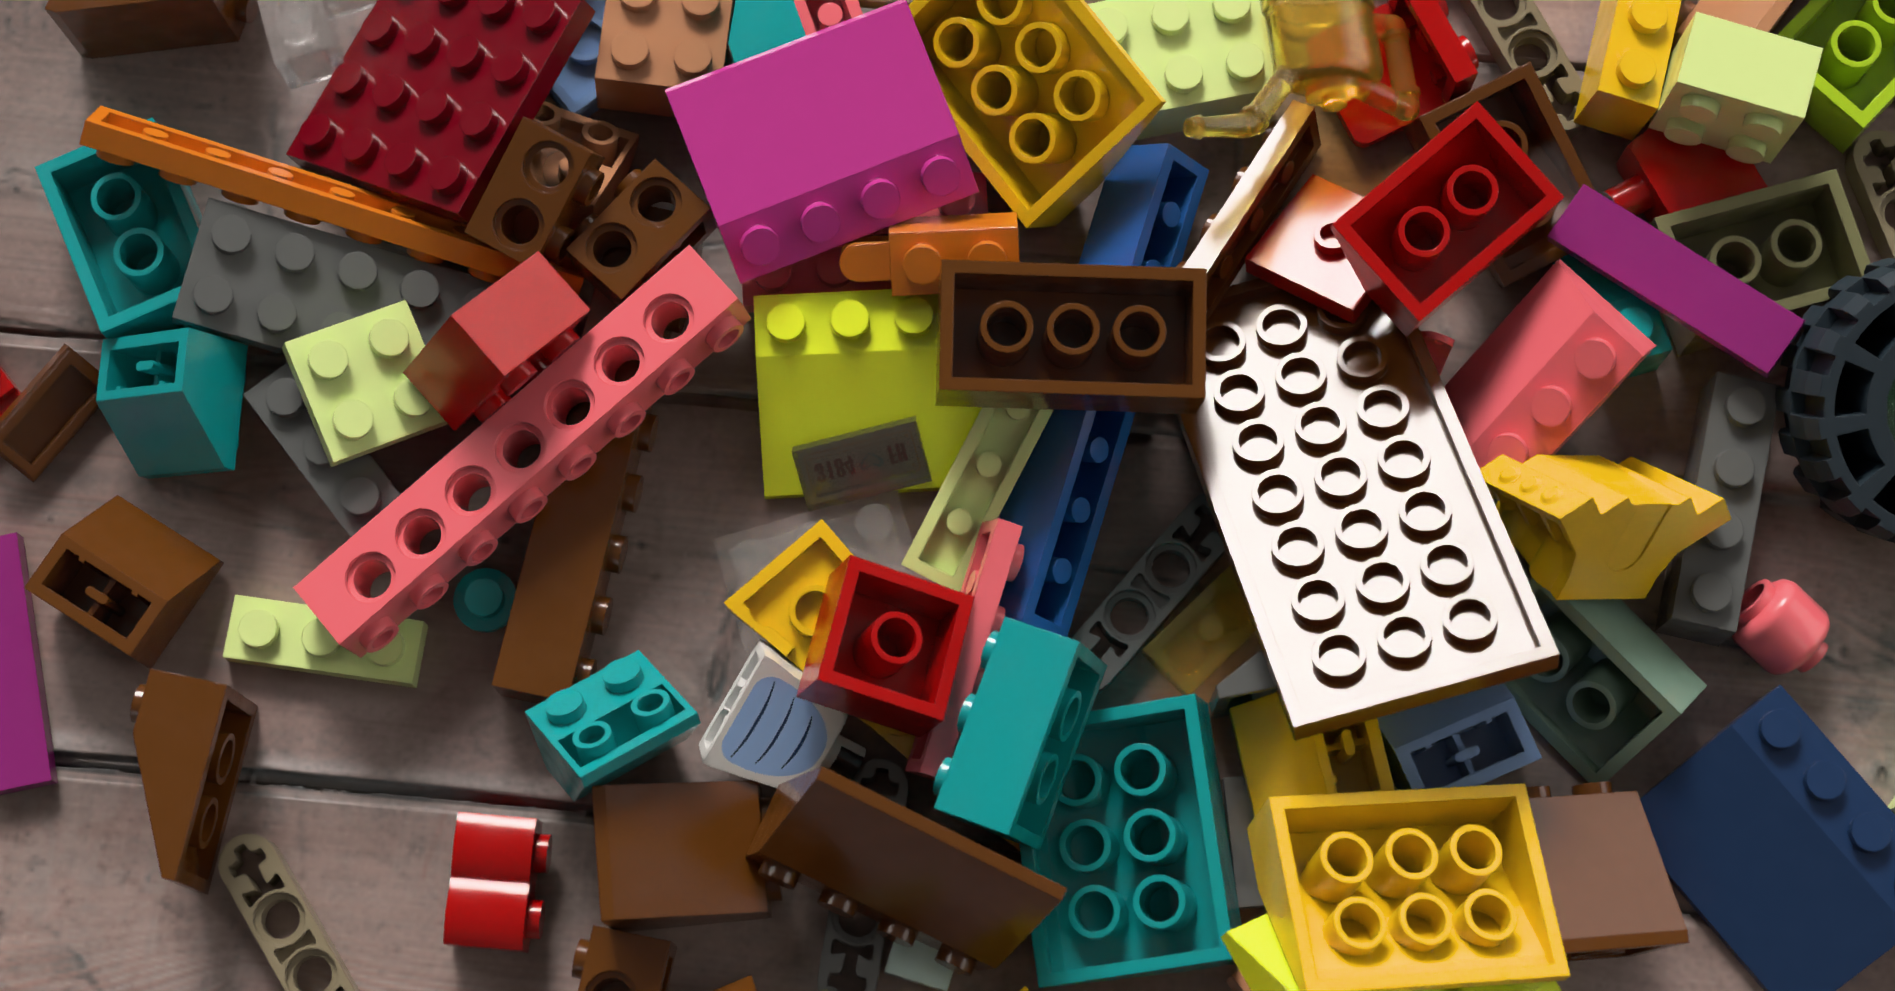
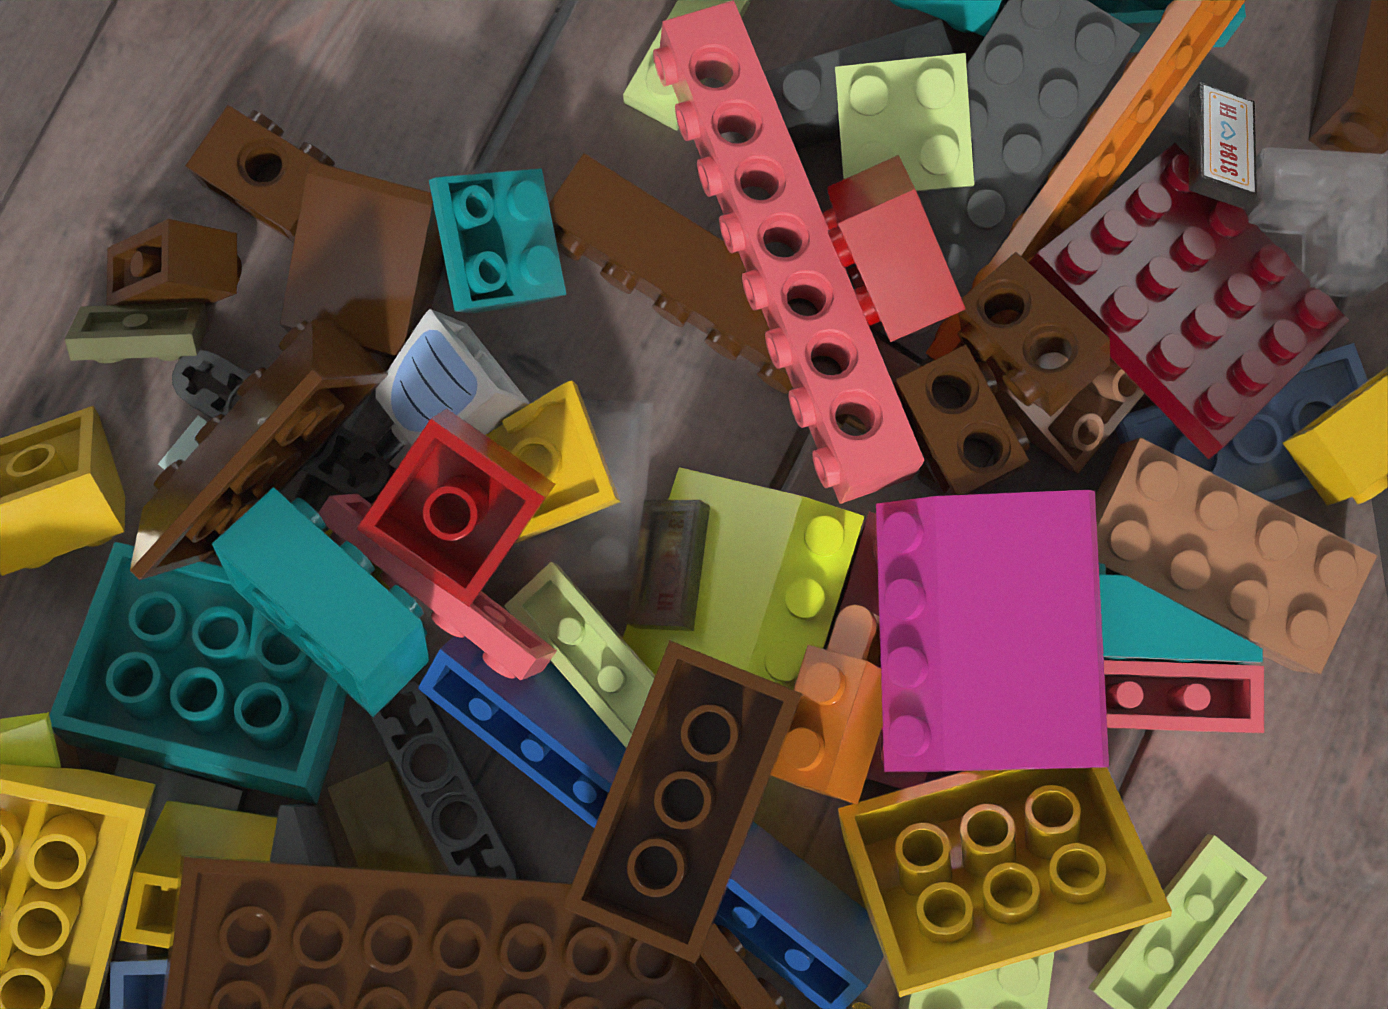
camera: 110 degrees right, 5 degrees up
(279, 106) = (1222, 146): none -> tile
(484, 600) = (675, 182): teal plate -> none
(495, 882) = (413, 105): red brick -> none

